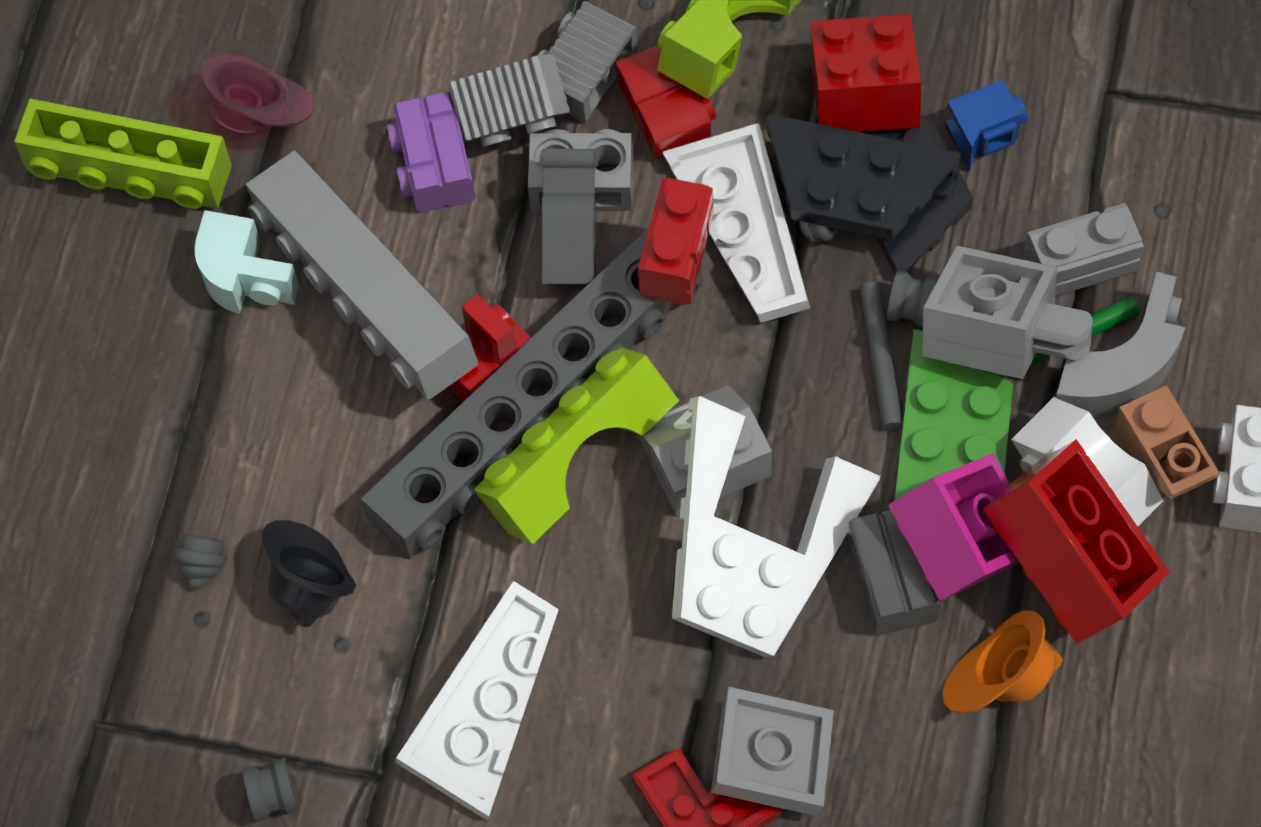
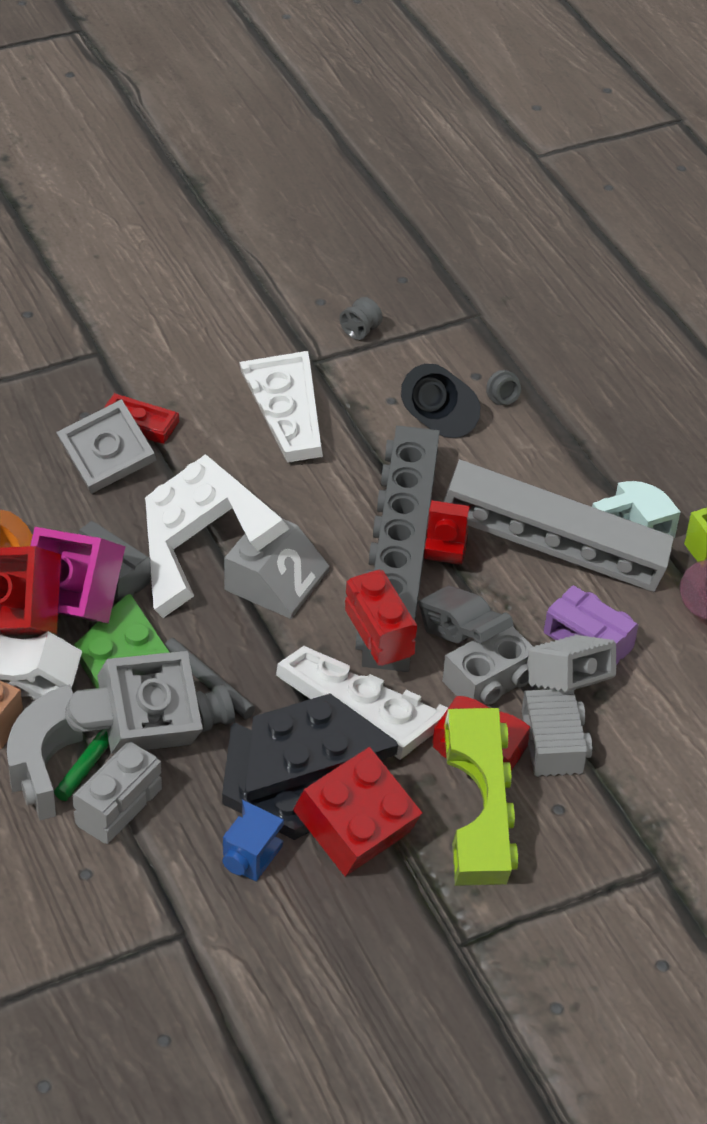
camera: 135 degrees right, 20 degrees down
(530, 484) = (347, 544): lime arch -> none

